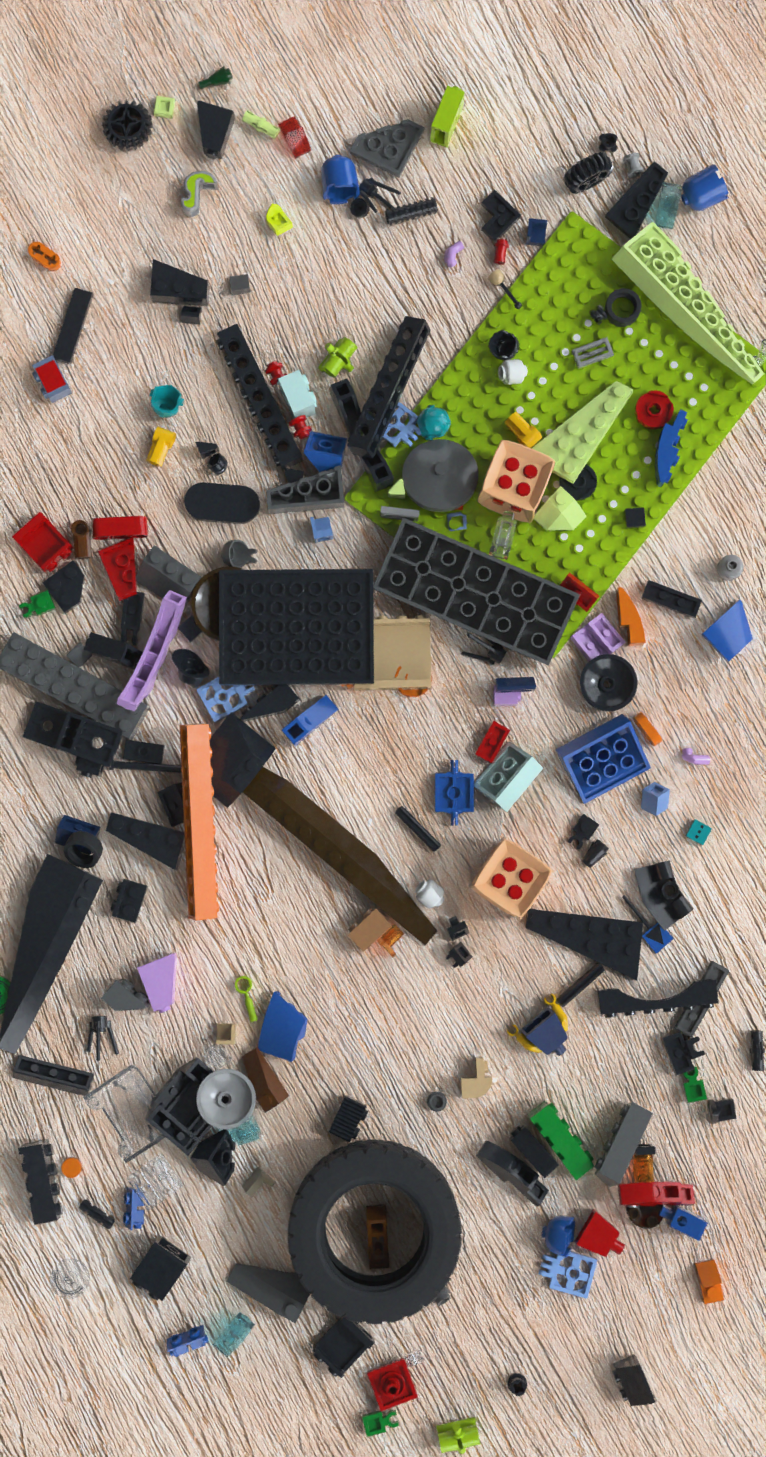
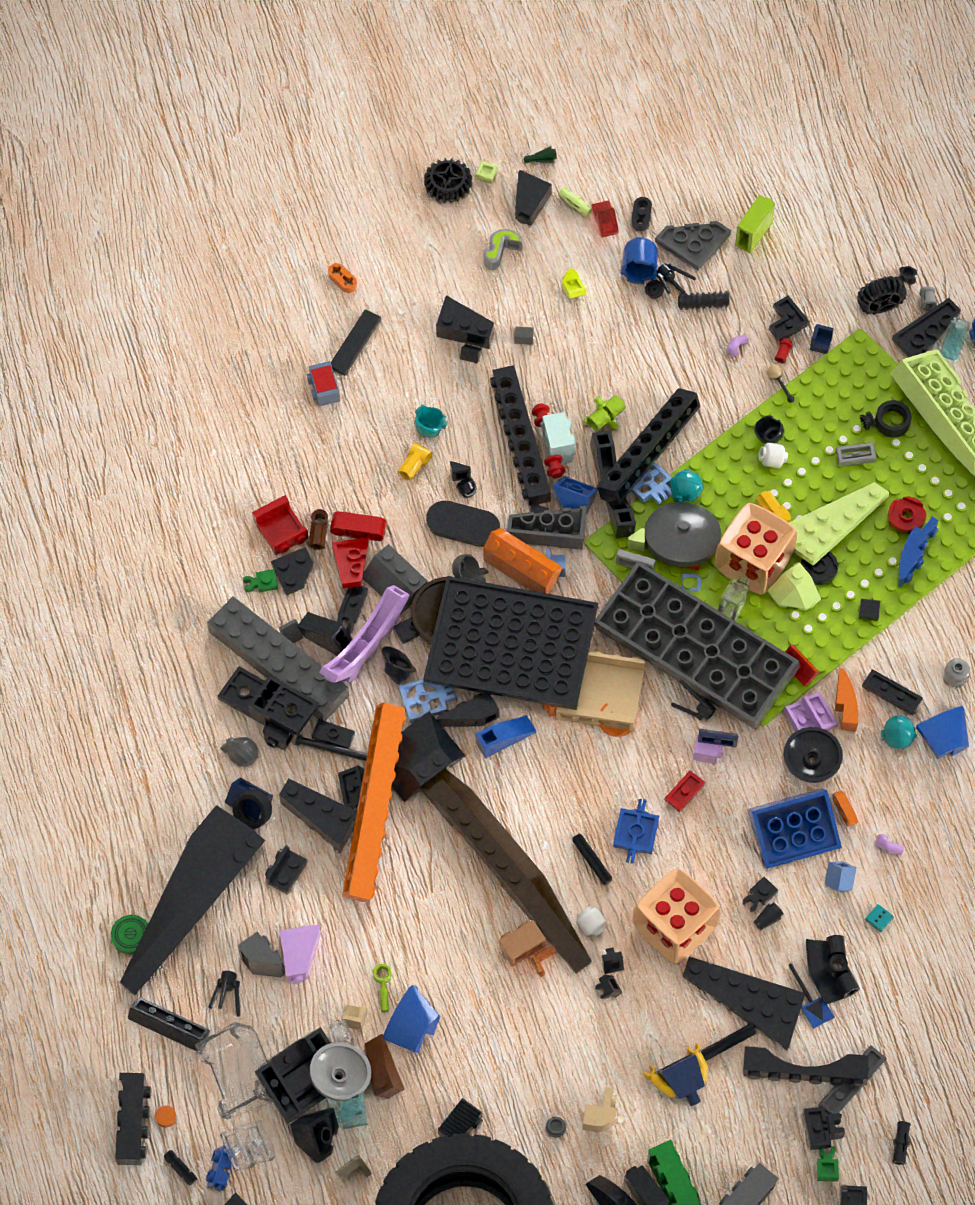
camera: 15 degrees right, 20 degrees down
(58, 788) = (241, 750): none -> dark grey piece
(289, 536) = (521, 561): none -> orange slope
(330, 126) = (641, 215): none -> black plate
(508, 776) = (694, 826): light aqua slope -> none
(685, 641) = (898, 732): none -> teal cap

